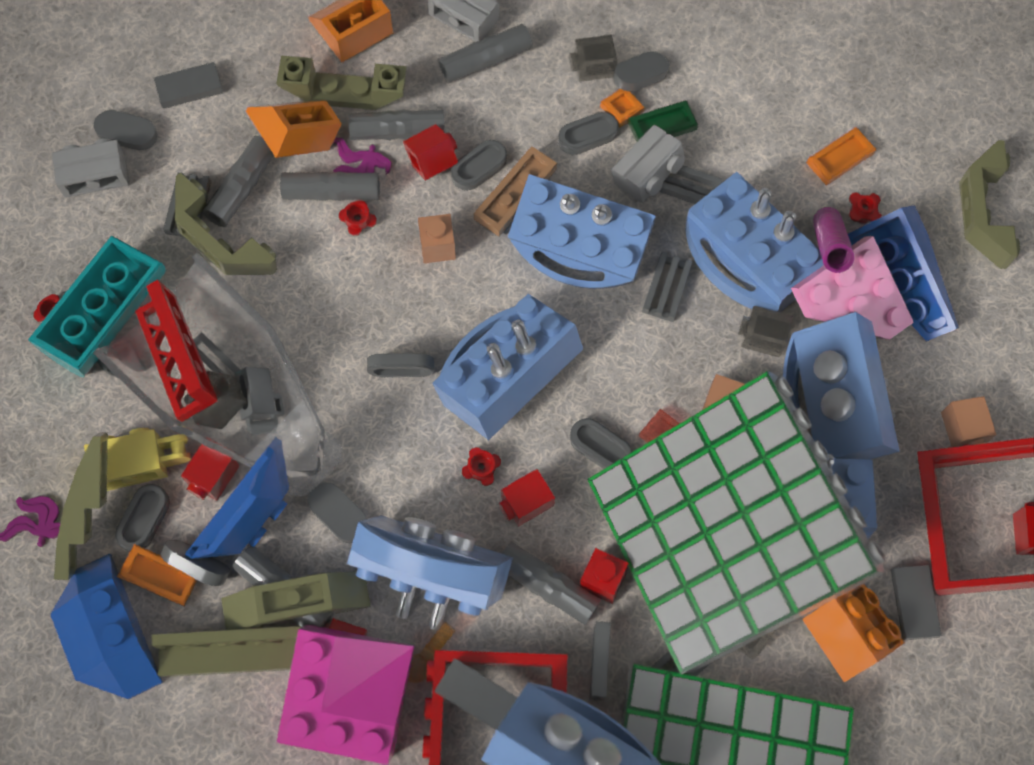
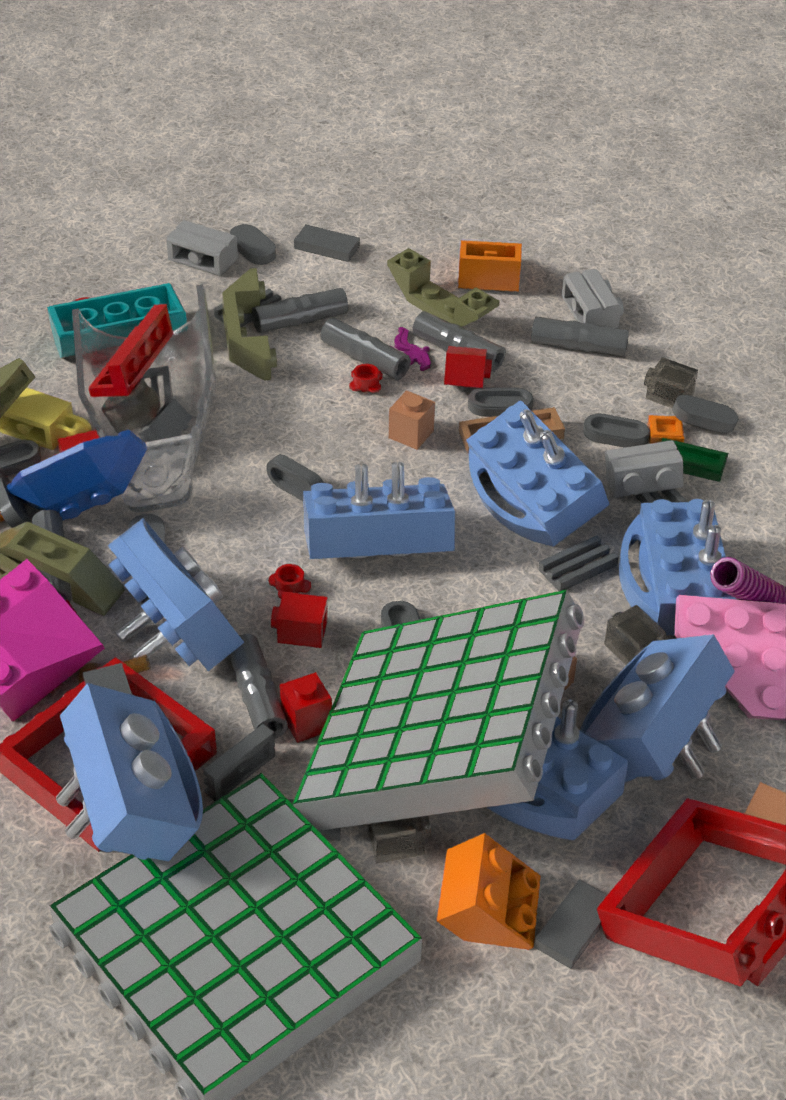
camera: 40 degrees right, 25 degrees down
(296, 126) = (375, 295): orange slope -> none

